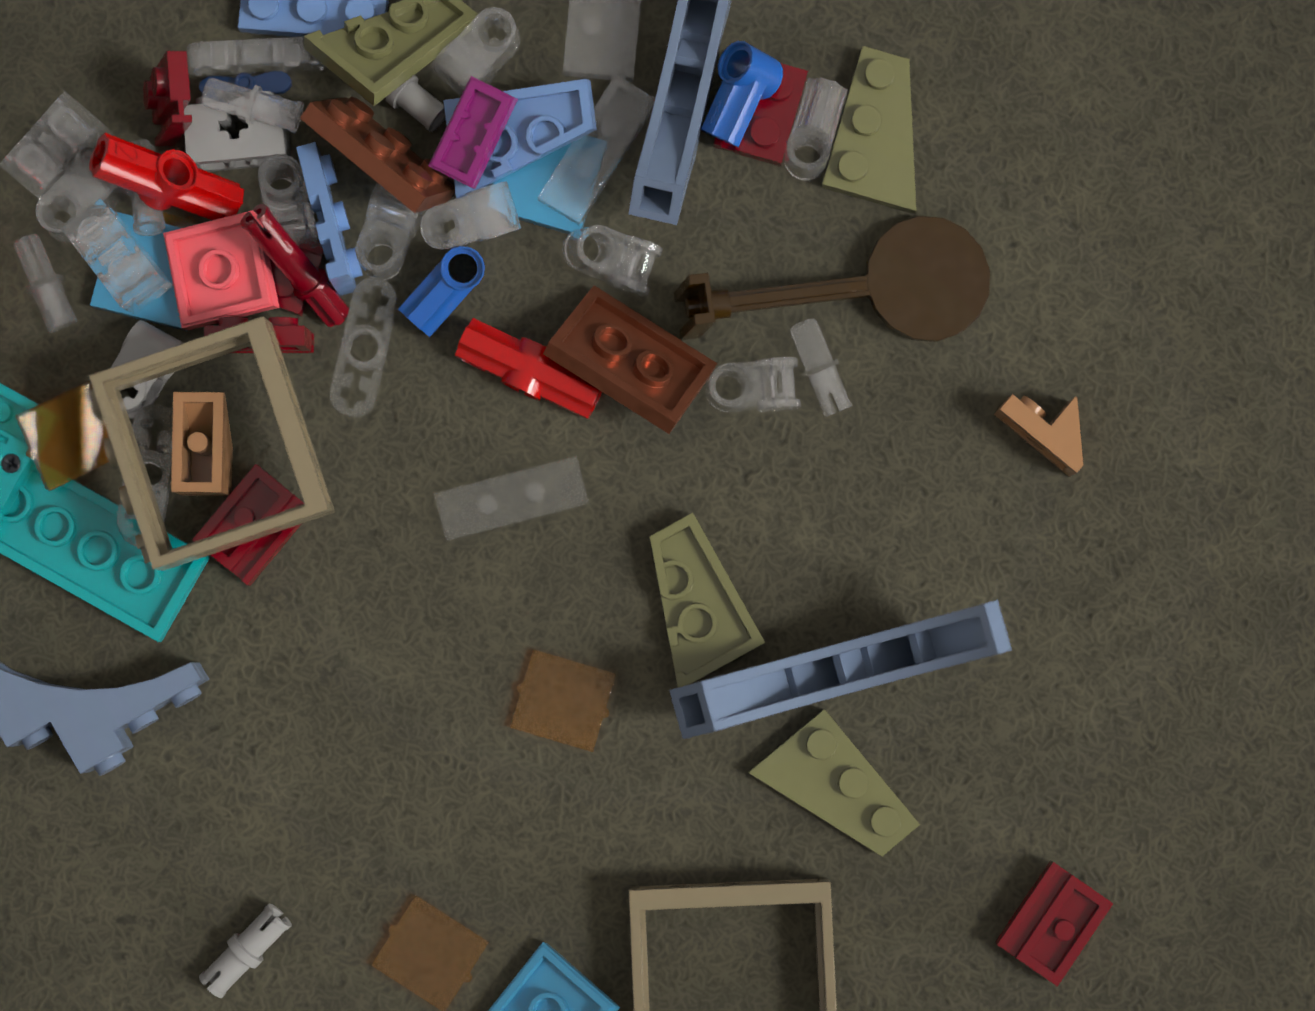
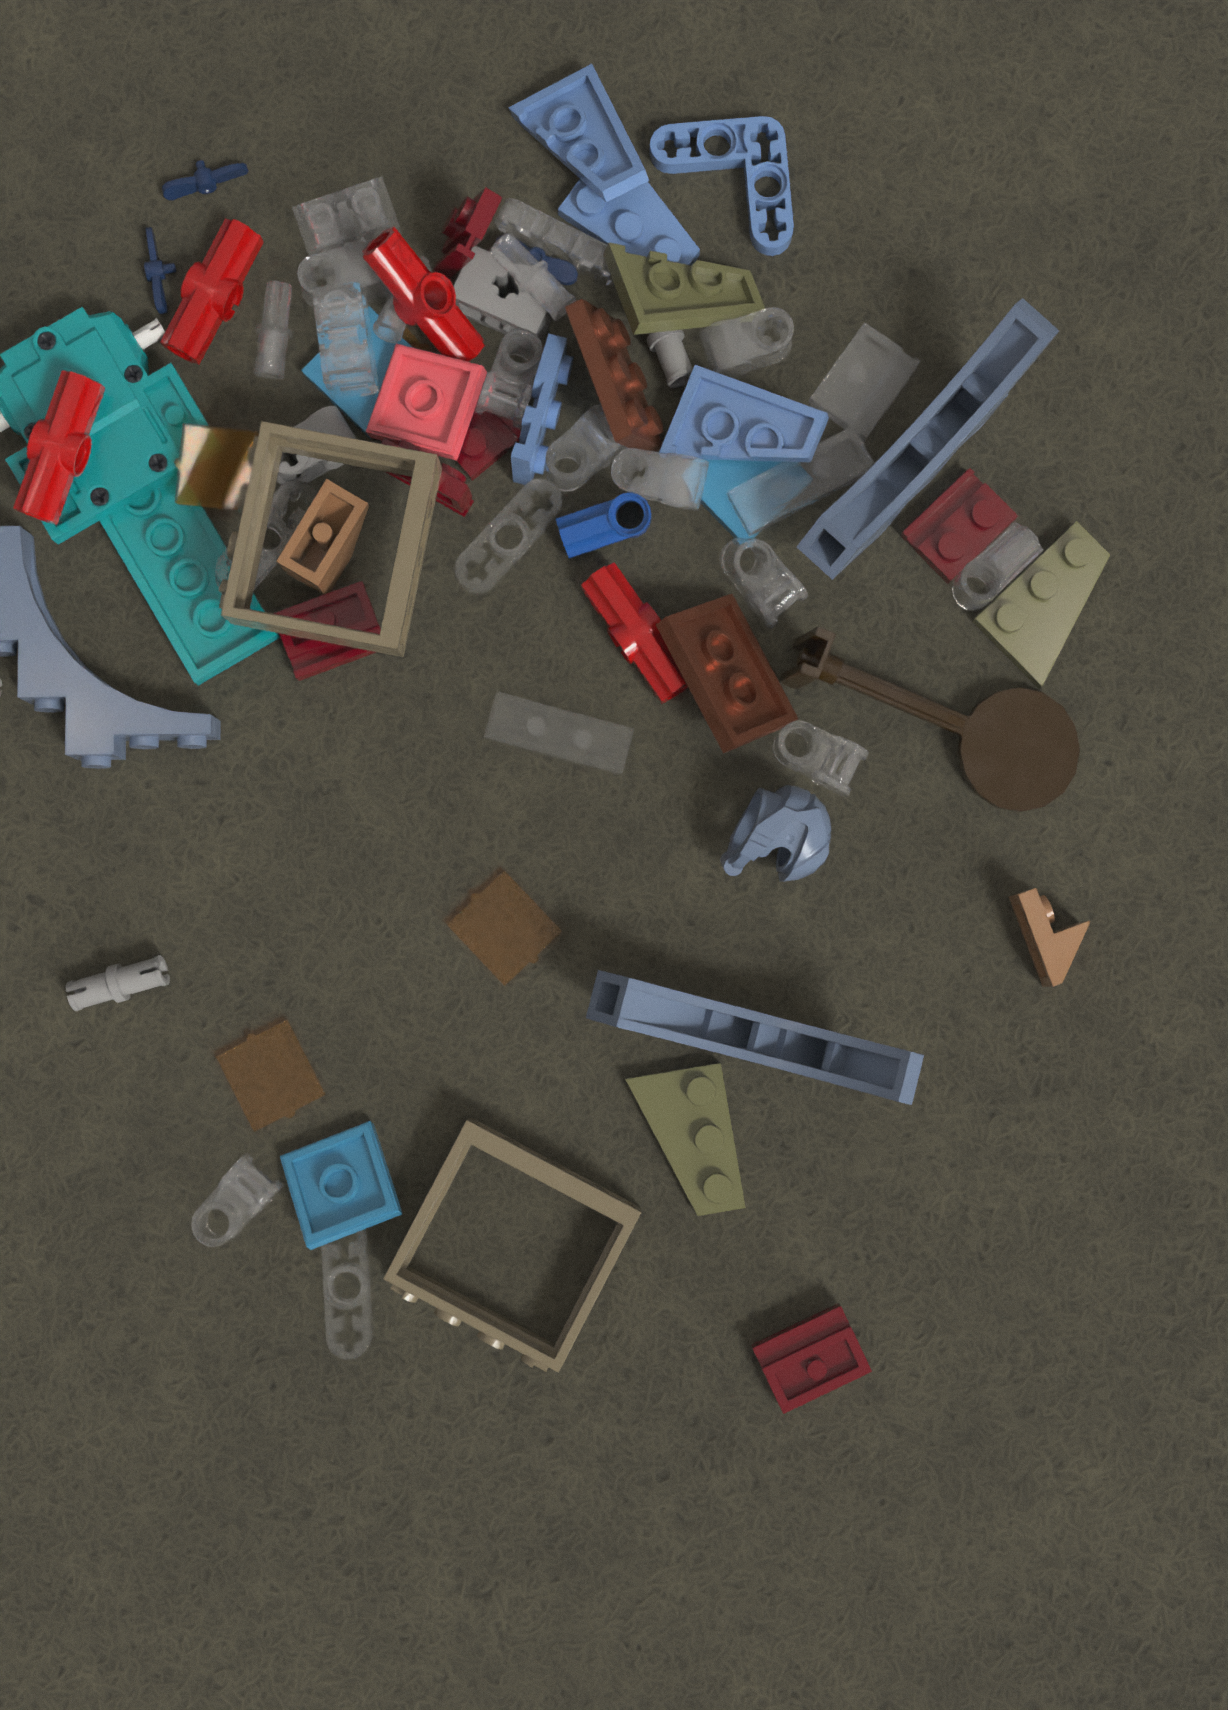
camera: 30 degrees right, 0 degrees up
(308, 281) = (490, 432): dark red axle -> none
(473, 132) = (704, 404): magenta plate -> none
(699, 603) = (667, 913): olive wing -> none
(747, 79) = (963, 491): blue piece -> none
(759, 461) = (785, 820): none -> sand blue helmet
(819, 366) = (884, 771): clear axle -> none

